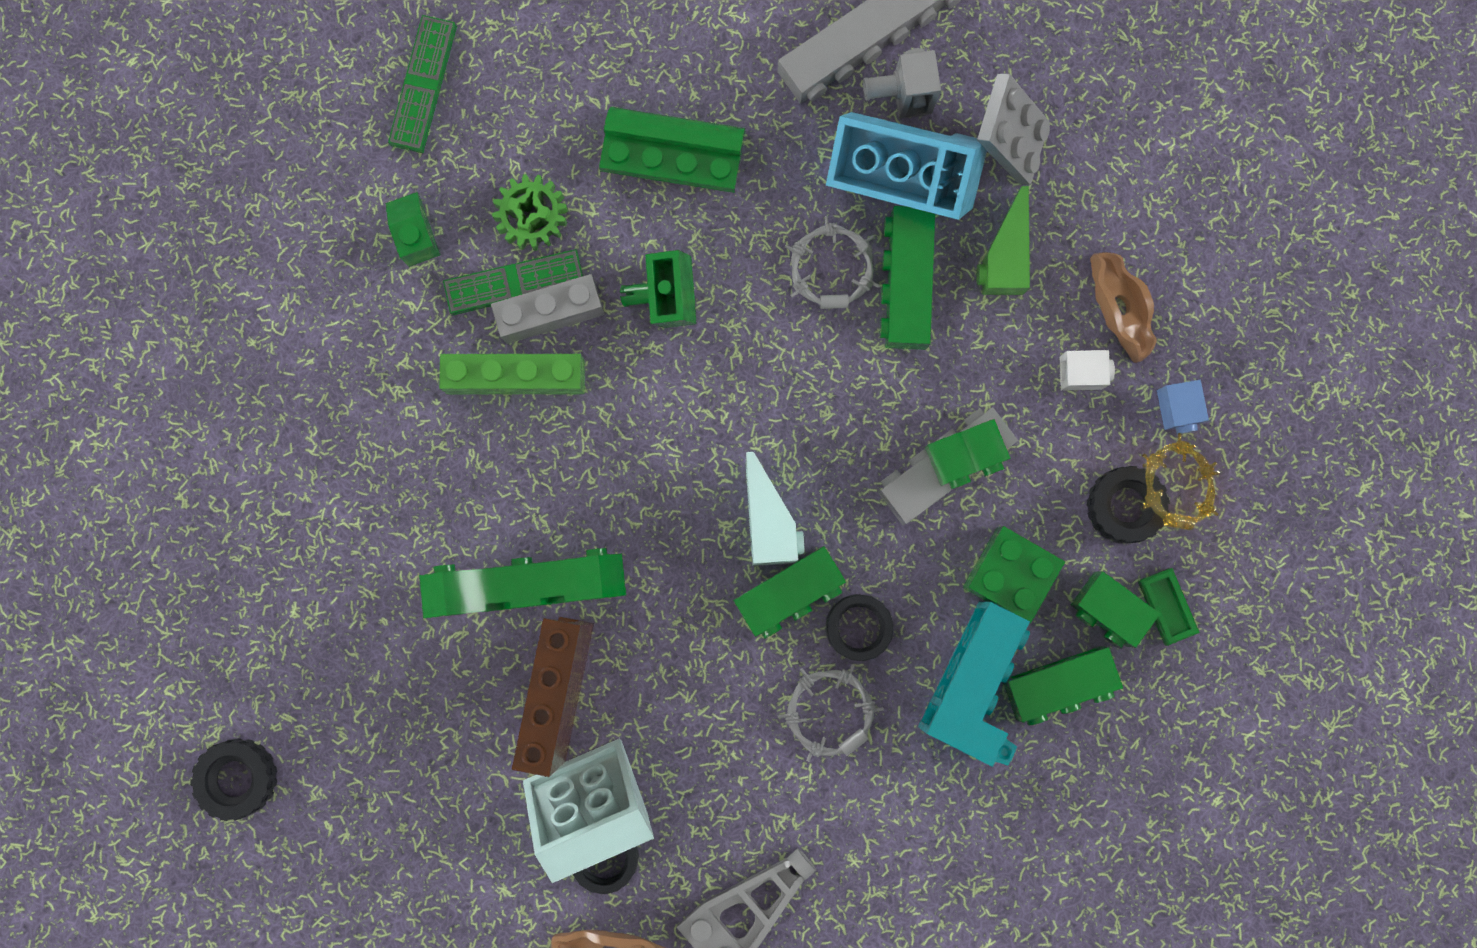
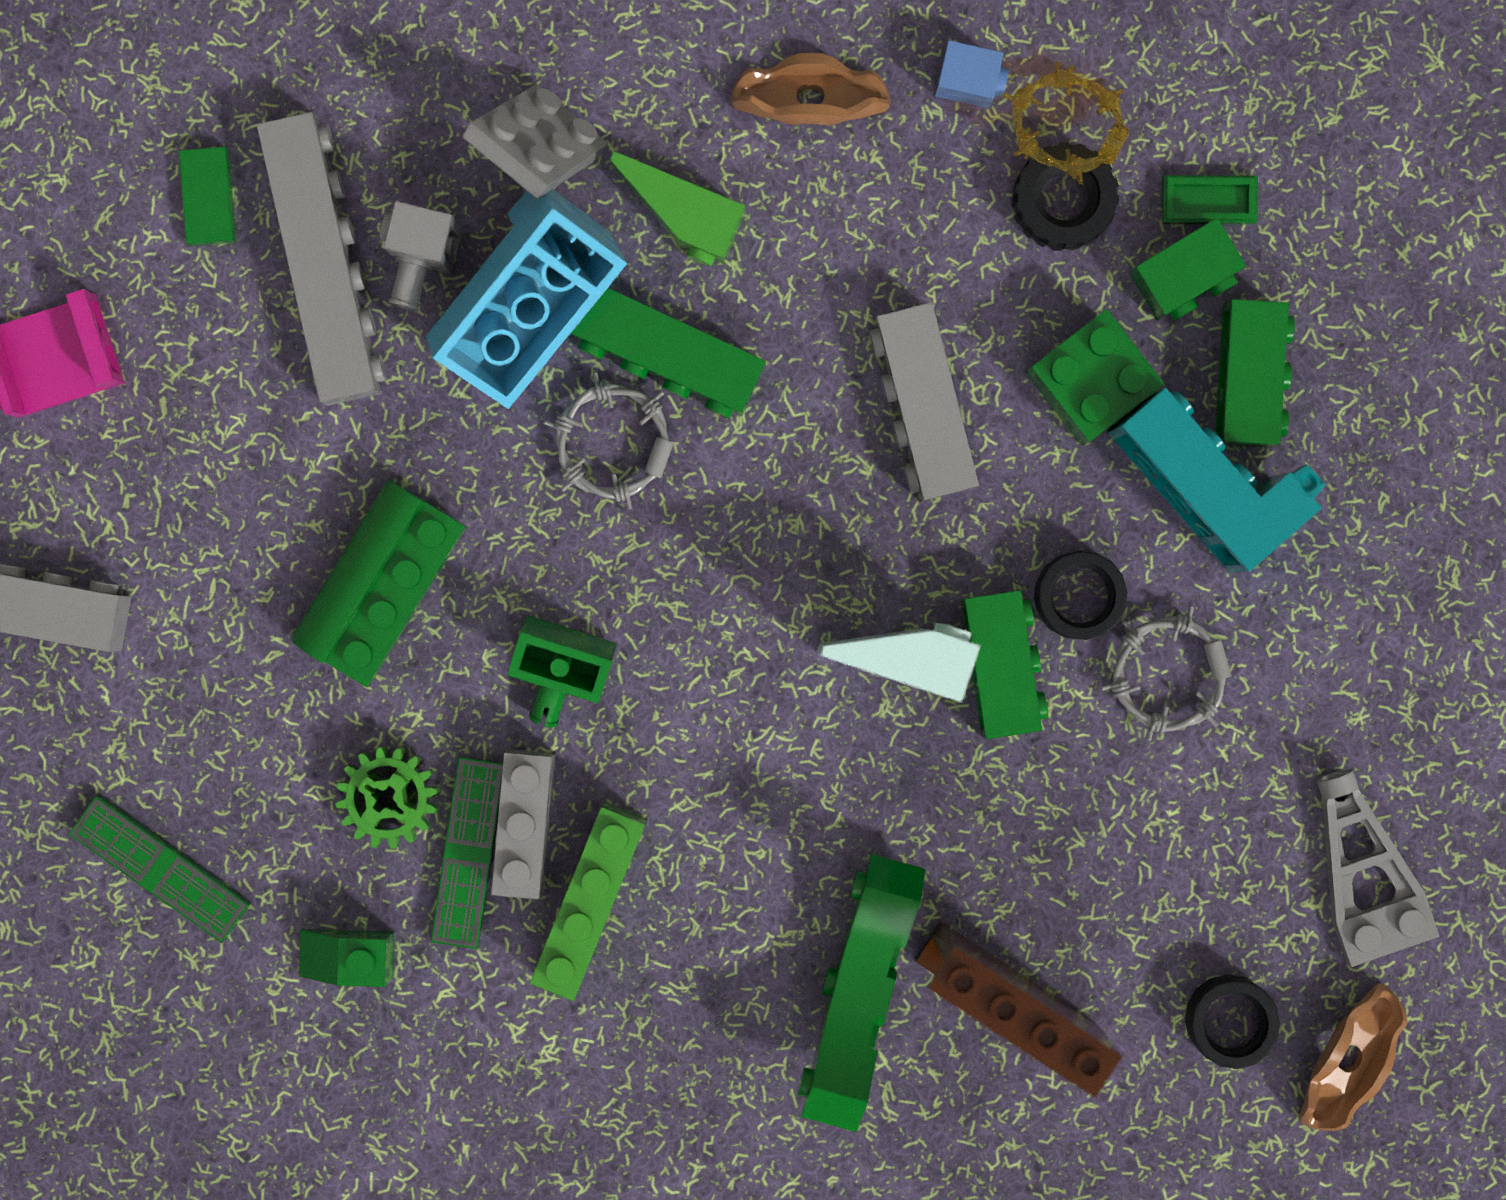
camera: 70 degrees left, 5 degrees up
(586, 811) = (1172, 1021): light aqua slope -> none
(968, 453) = (925, 374): green brick -> none
(1086, 370) = (876, 176): white brick -> none

